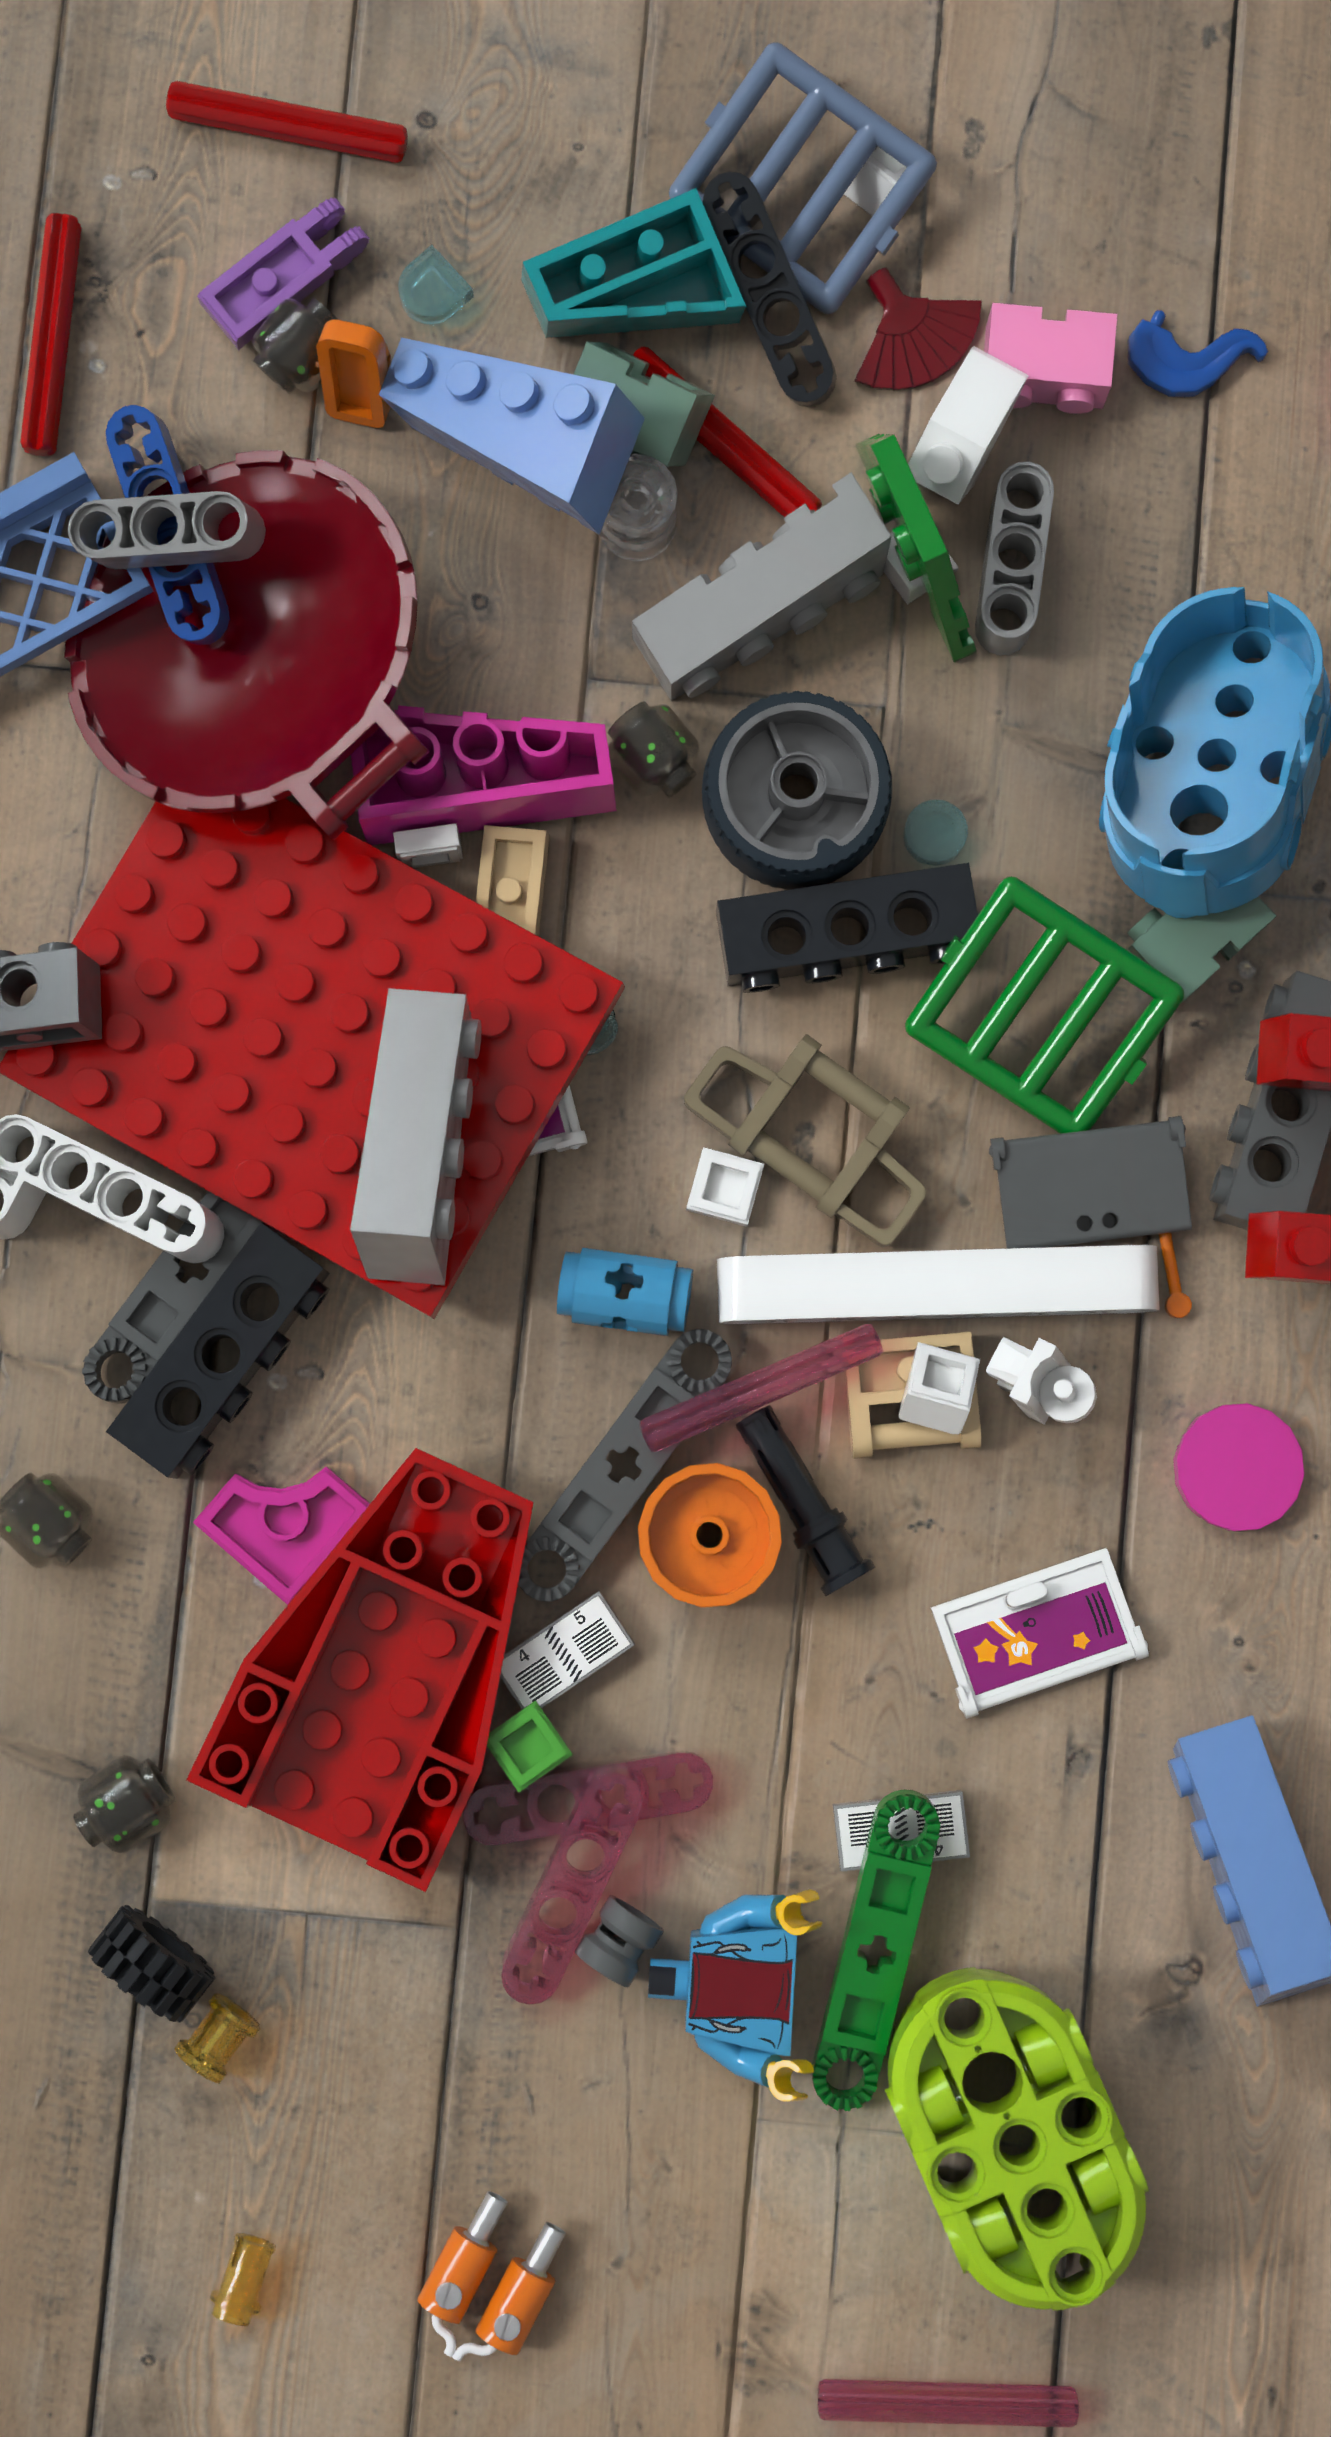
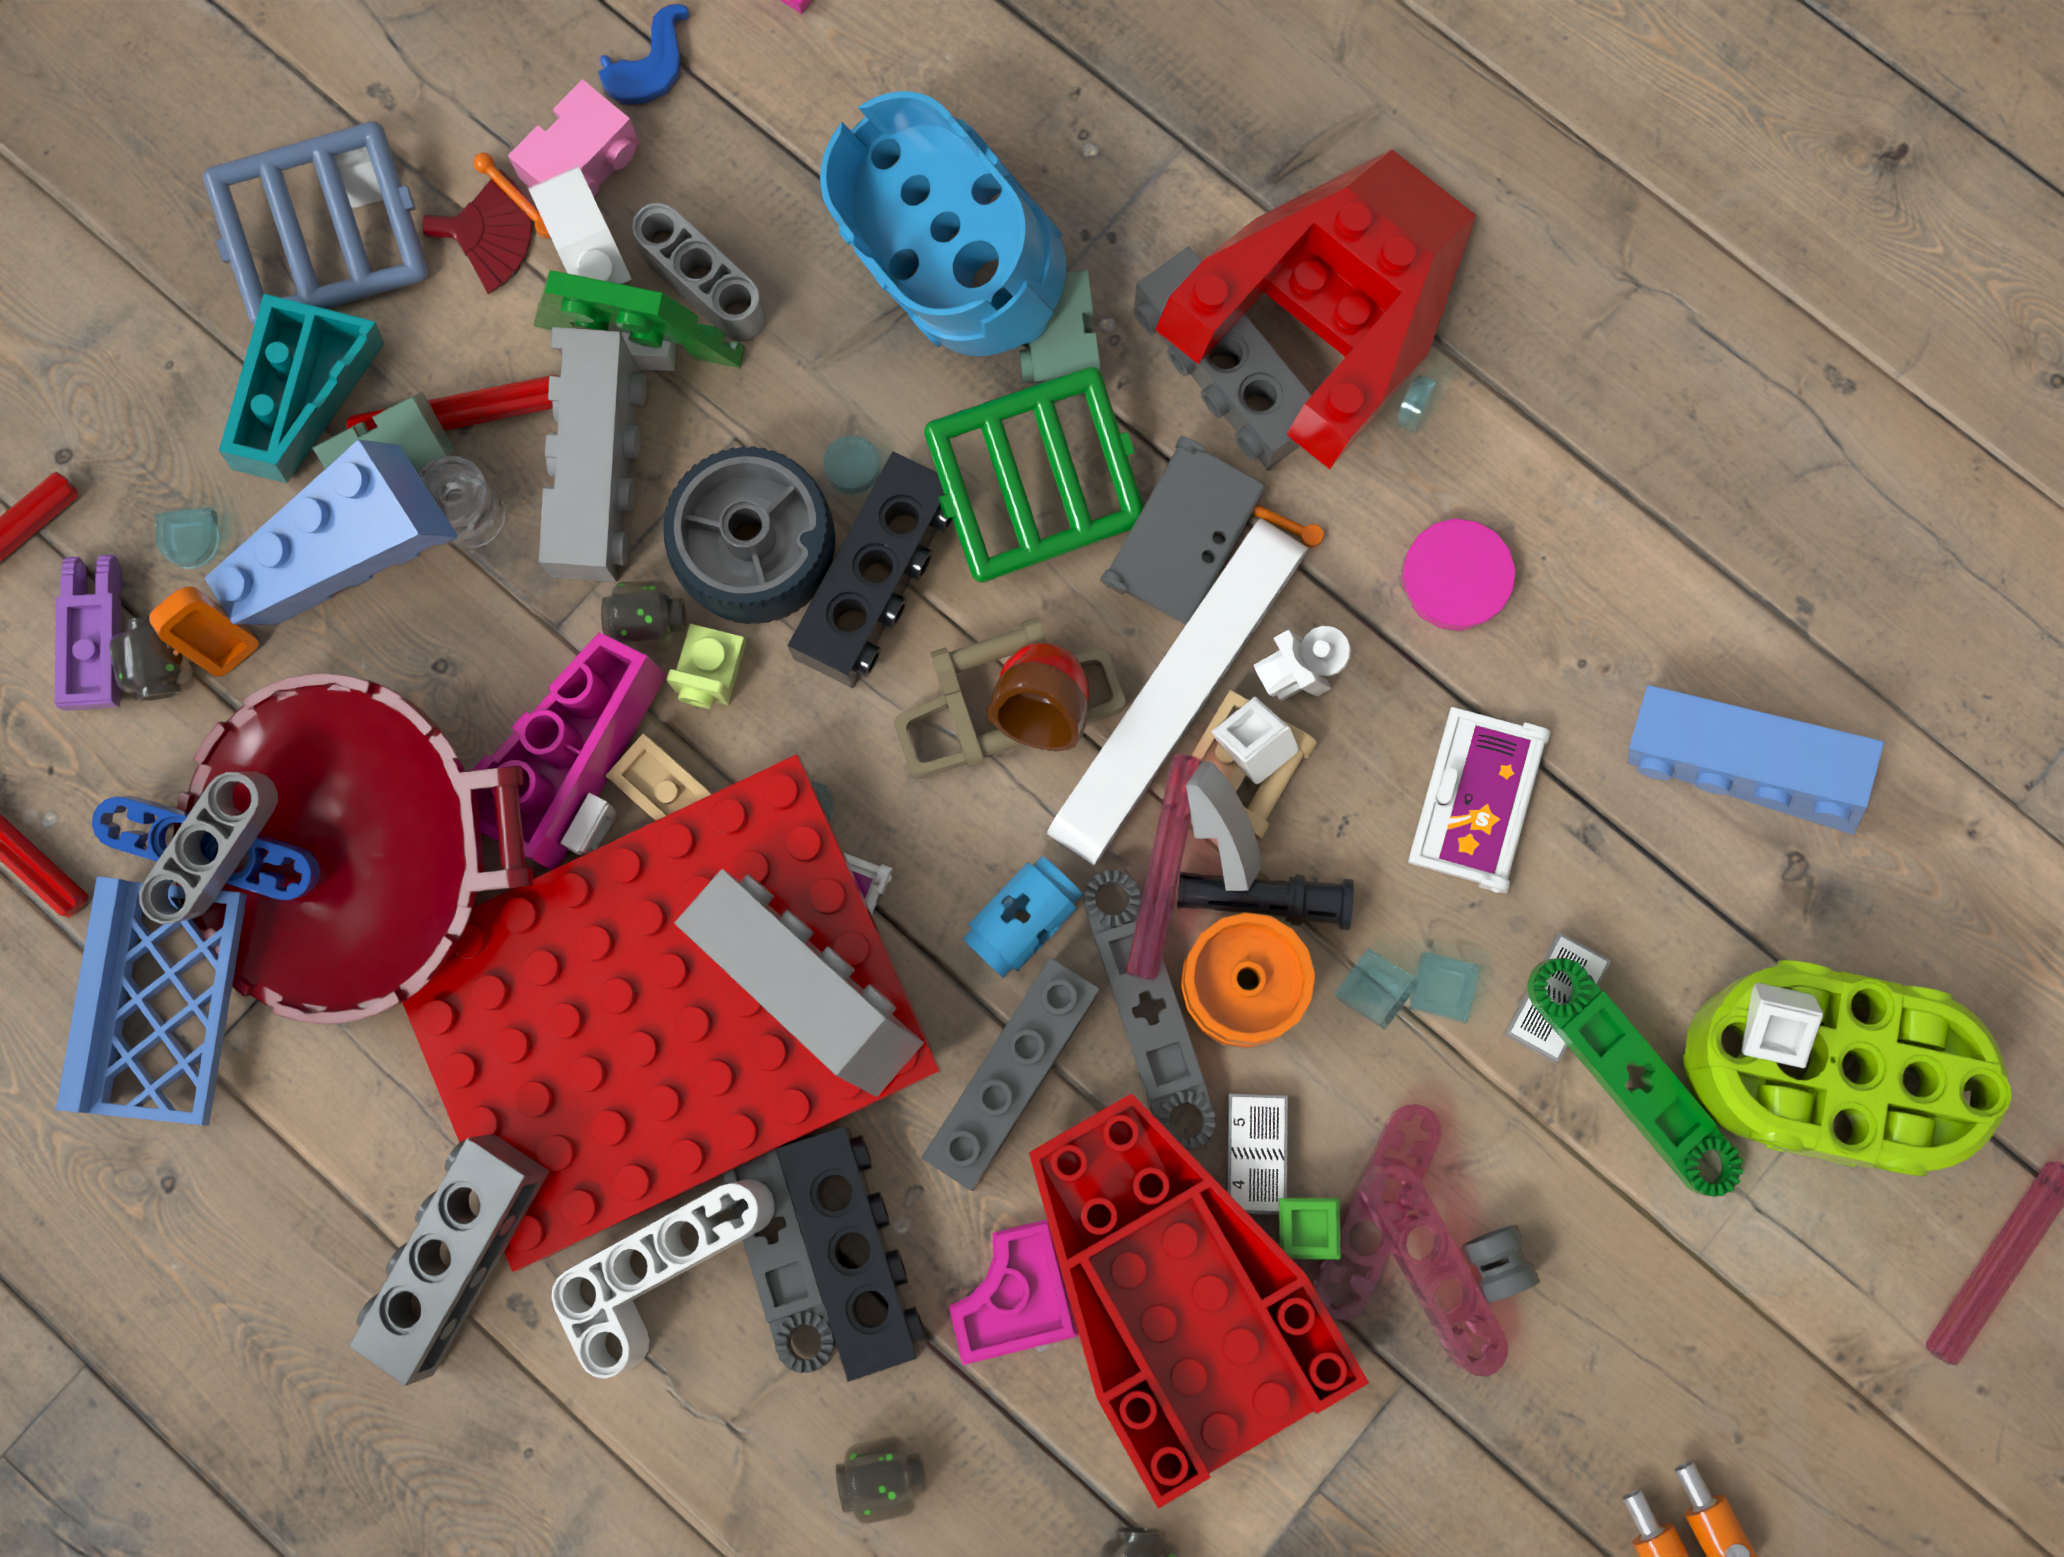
camera: 50 degrees left, 5 degrees down
(474, 1383) = (1011, 1074): none -> dark grey brick
(650, 841) = (707, 667): none -> yellowish green bracket
(725, 1187) = (997, 792): white tile -> none
(743, 1987) = (1597, 1194): torso -> none
(766, 291) = (378, 298): black beam -> none
(790, 1658) = (1376, 989): none -> clear light blue tile
(834, 1165) = (1041, 698): none -> reddish brown piece
(836, 1720) = (1444, 987): none -> clear light blue tile
(843, 1406) = (1220, 815): none -> light grey slope
(974, 284) = (485, 164): none -> orange hinge
(1004, 2046) = (1781, 1025): none -> white slope

